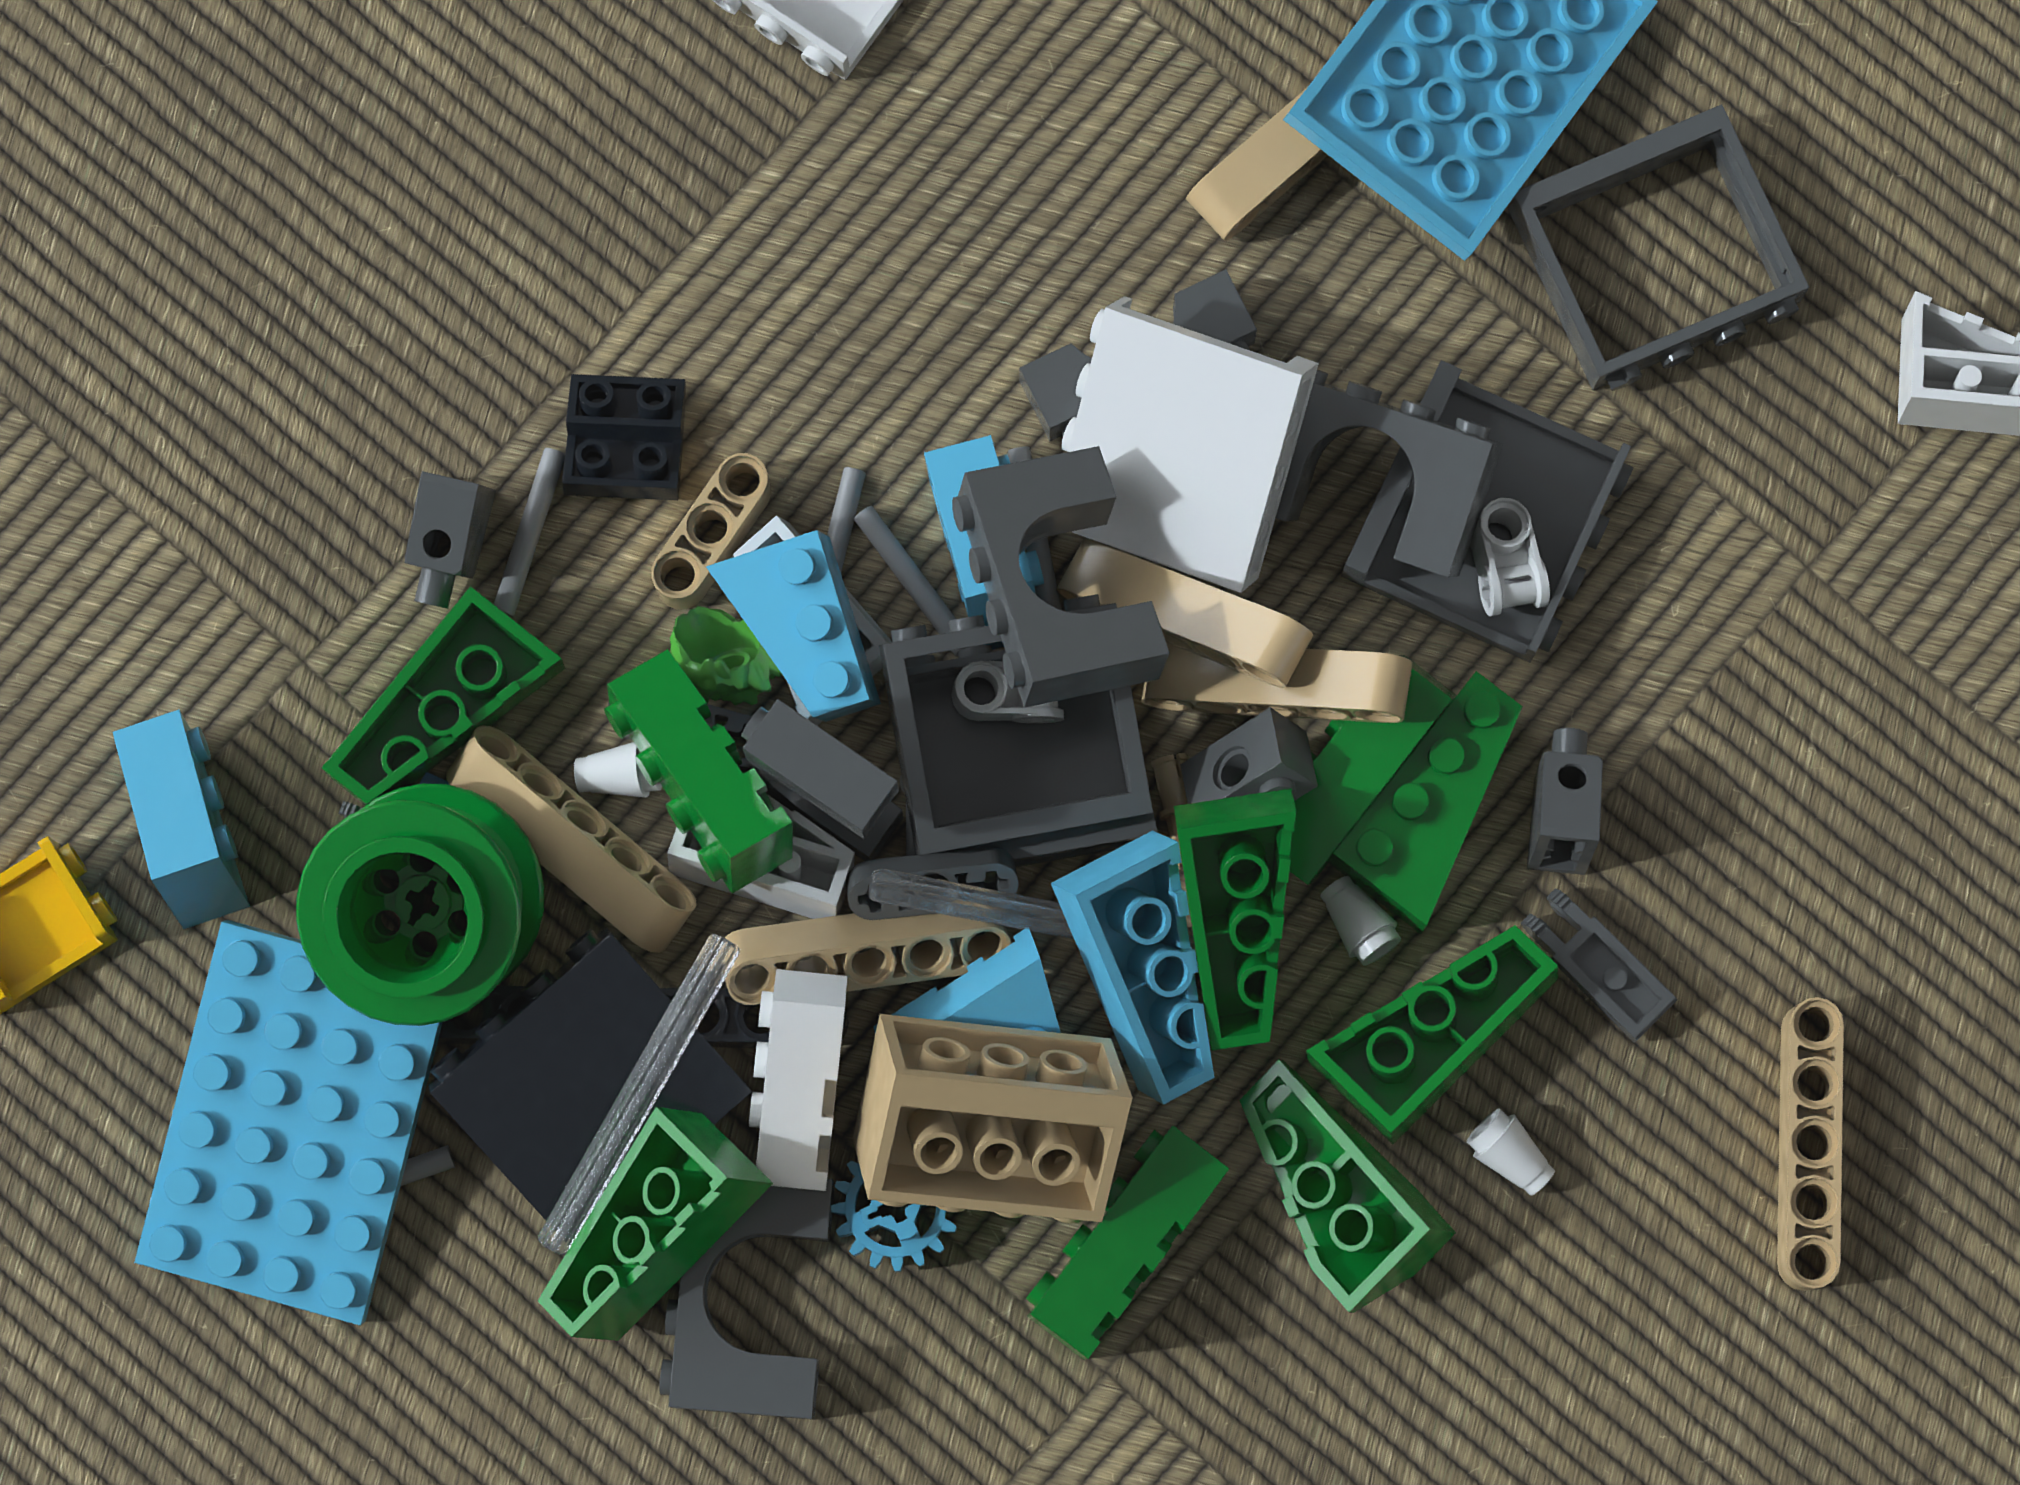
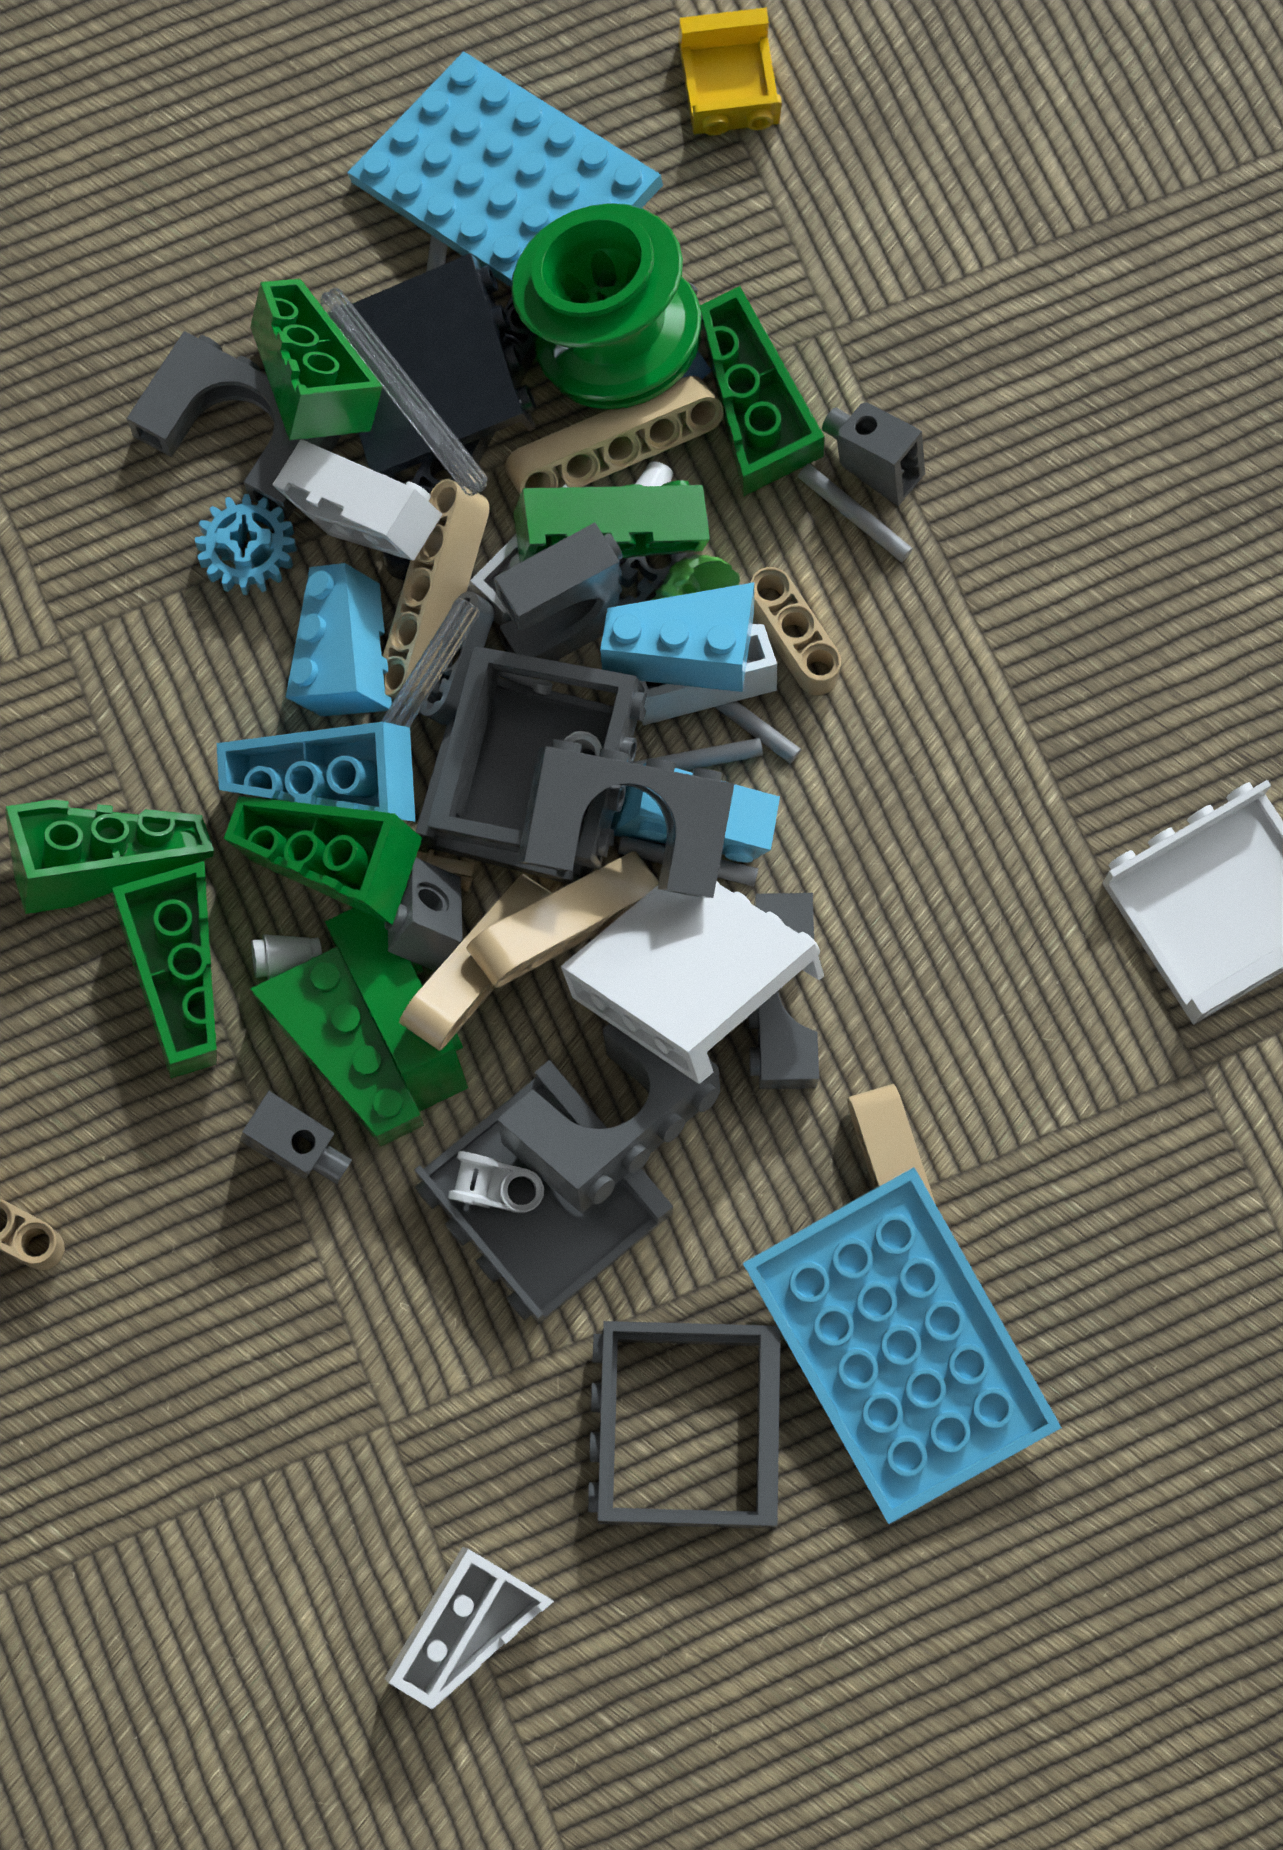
camera: 110 degrees right, 5 degrees down
(180, 818) = (754, 193): medium azure wedge -> none
(624, 437) = (895, 606): black slope -> none
(991, 1119) = (262, 609): tan brick -> none
(1128, 1243) = (135, 678): green wedge -> none
(1510, 1151) = (64, 983): white cone -> none
(1602, 968) = (161, 1114): dark grey hinge -> none

